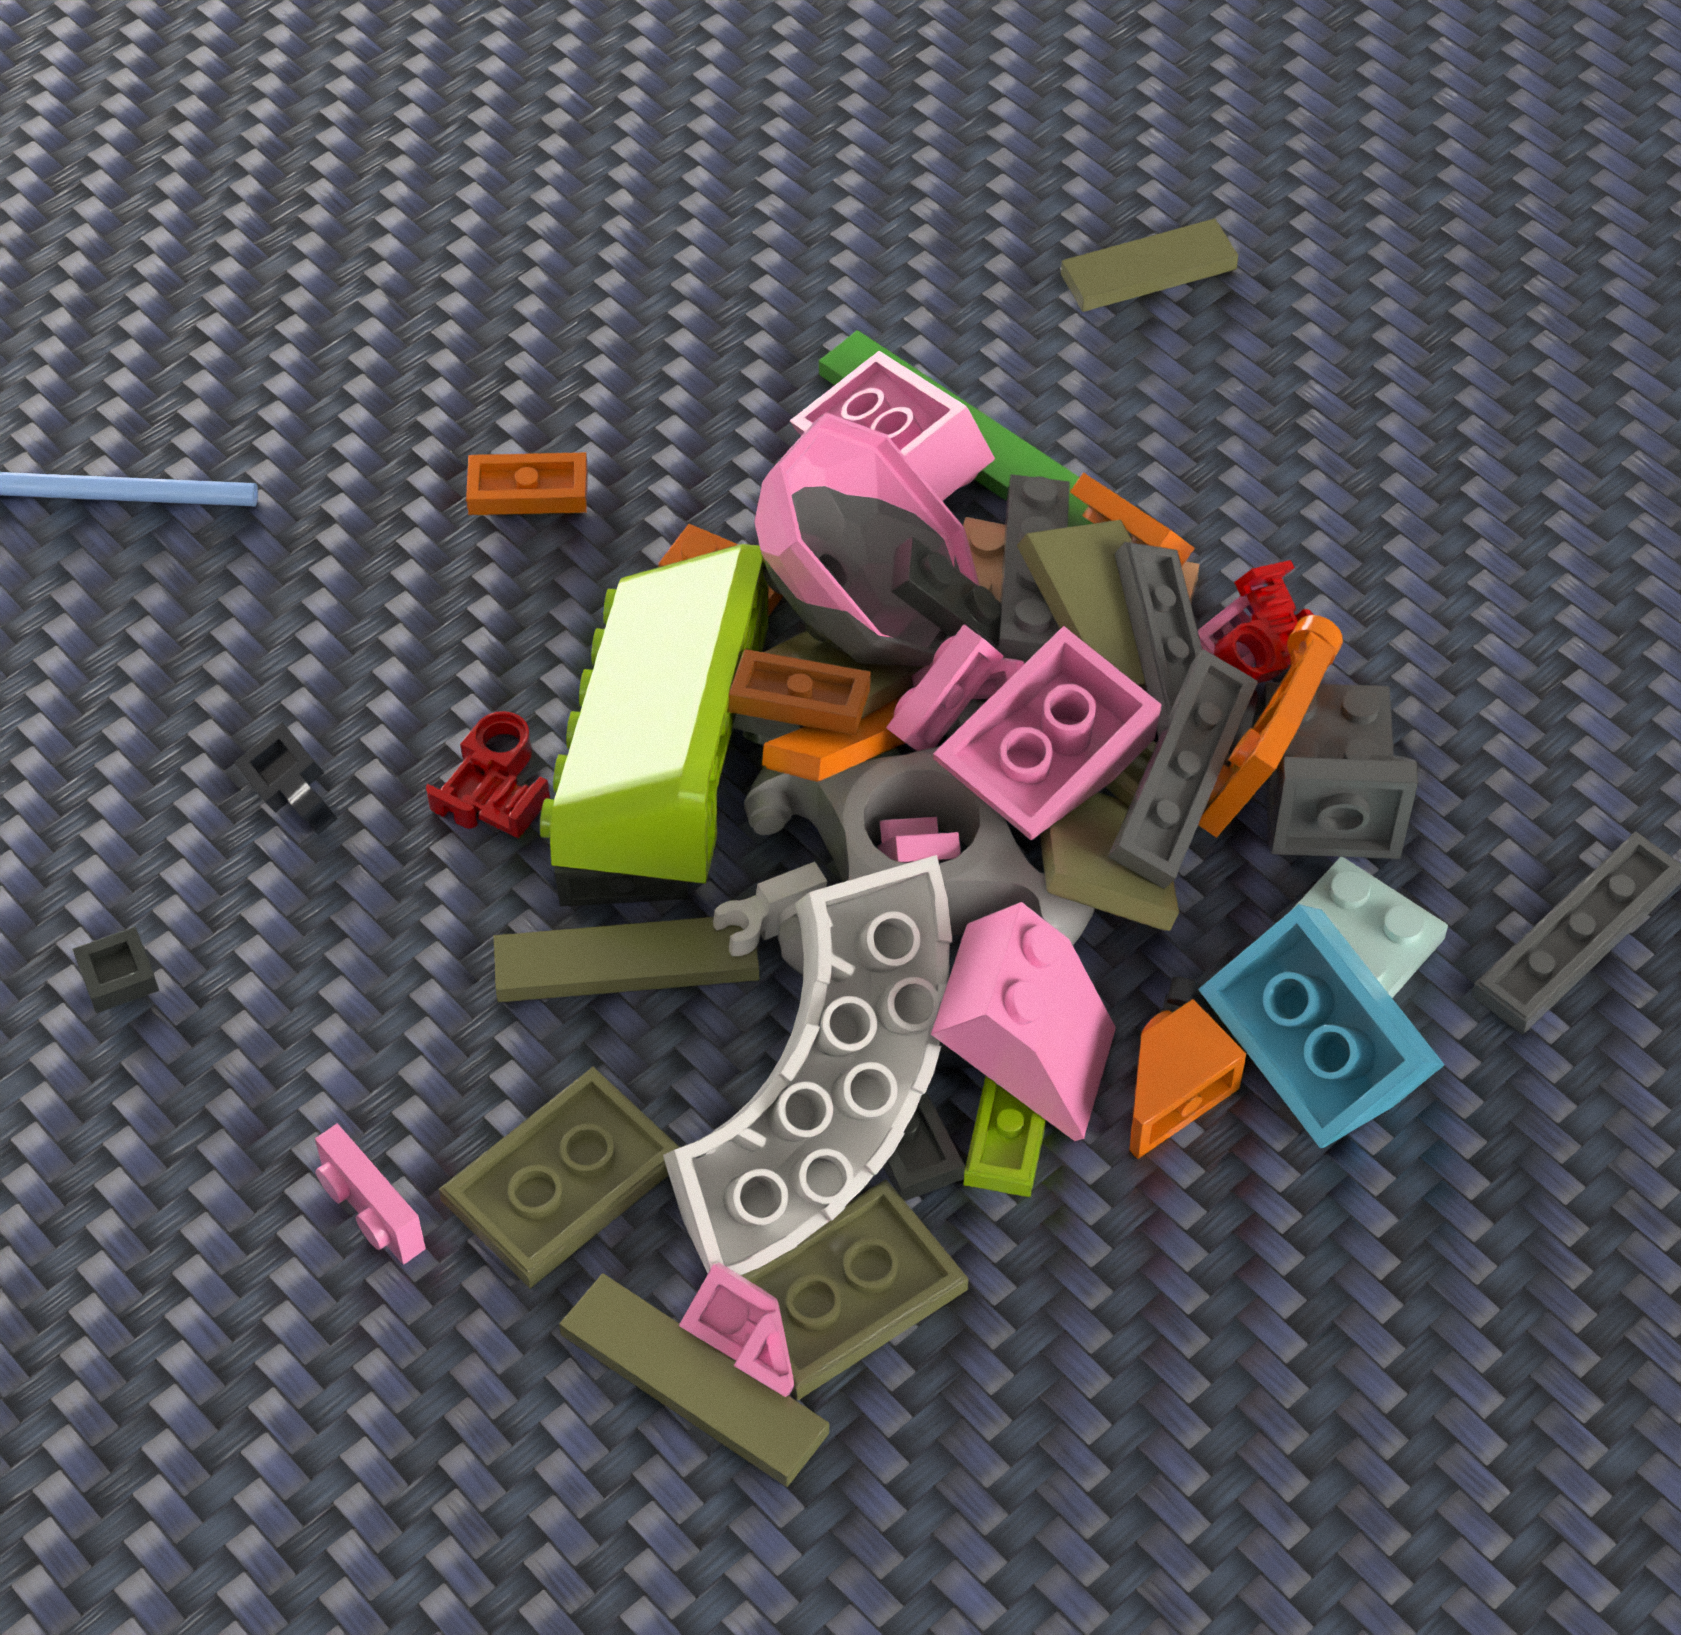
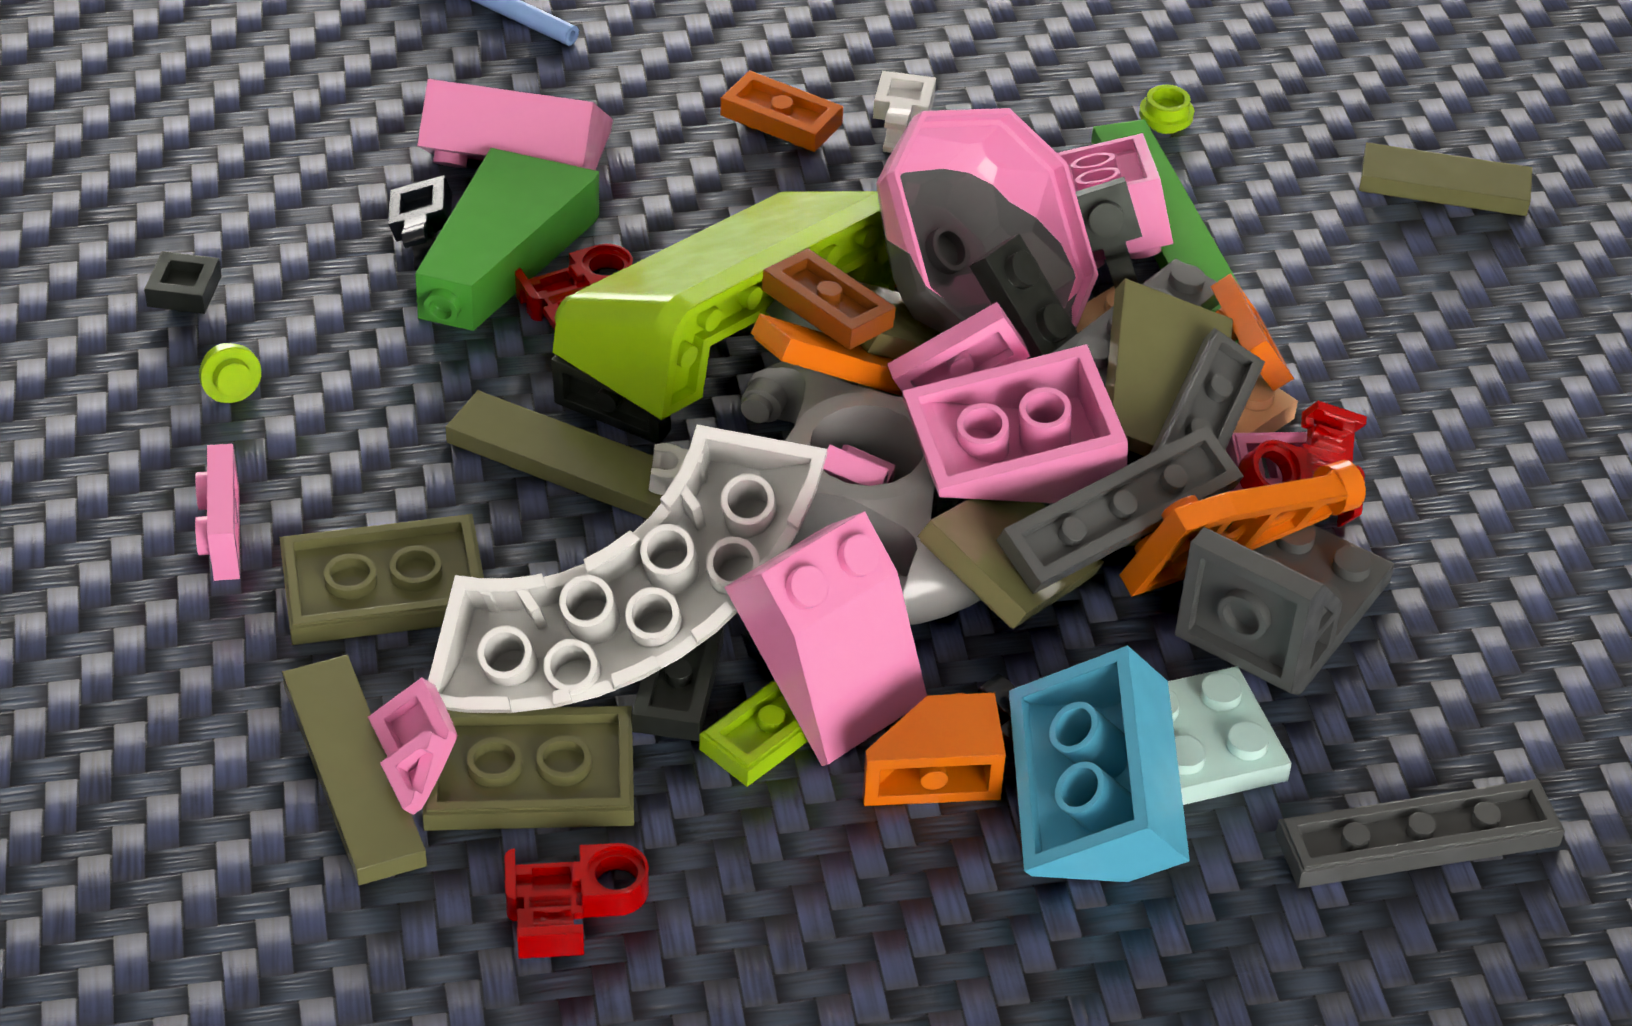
camera: 30 degrees right, 10 degrees down
(246, 1043) = (229, 373): none -> lime plate
(301, 637) = (470, 119): none -> bright pink slope
(381, 749) = (509, 218): none -> bright green slope
(634, 418) = (899, 100): none -> white plate
(866, 308) = (1167, 109): none -> lime plate
(945, 468) = (1109, 224): none -> pearl dark grey plate
(974, 1406) = (551, 895): none -> red piece

